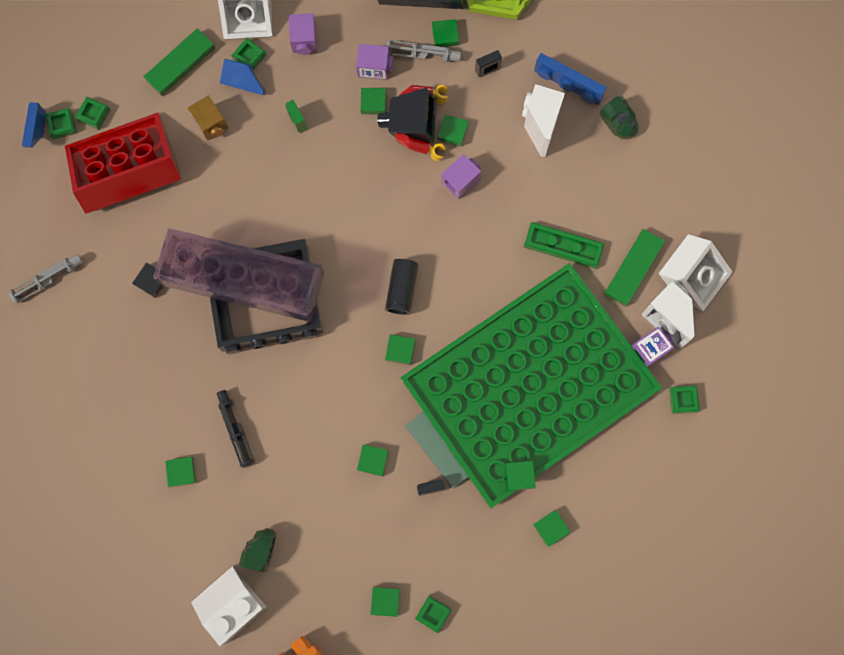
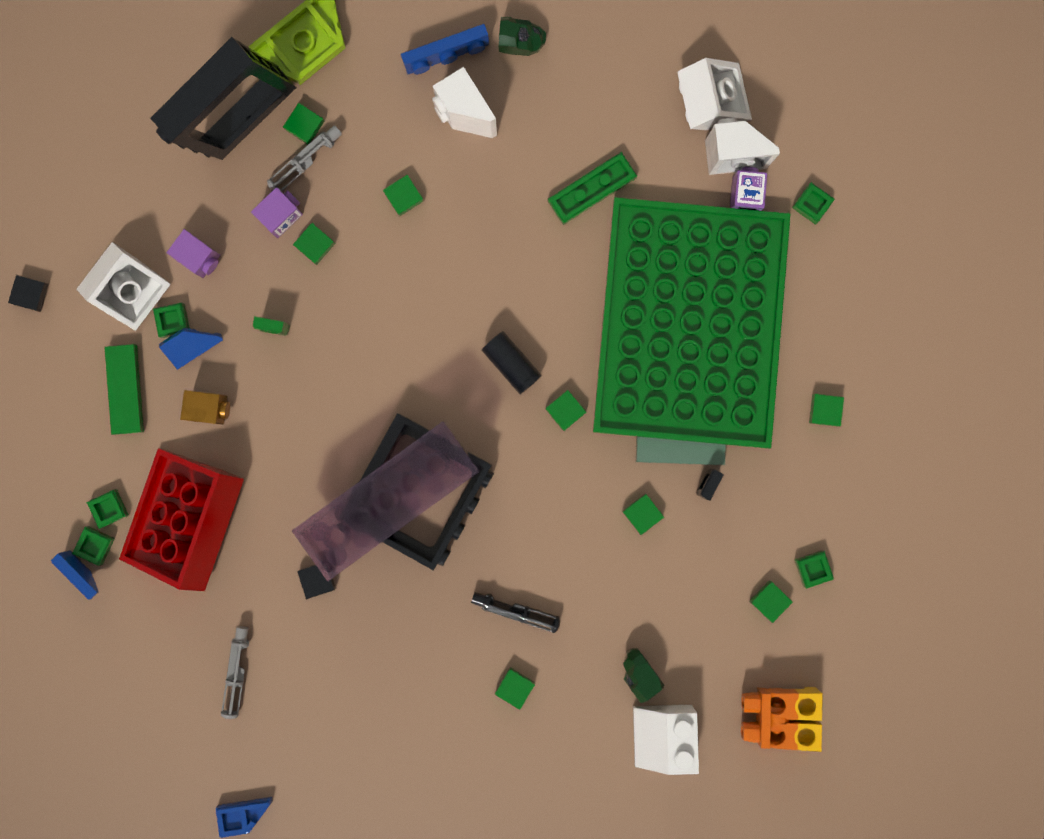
camera: 55 degrees left, 10 degrees up
(413, 118) = (364, 221): black torso -> none
(461, 176) = (454, 224): medium lavender brick -> none
(488, 63) = (368, 110): black tile -> none
(520, 475) = (766, 400): green tile -> none
(634, 267) = (664, 144): green tile -> none

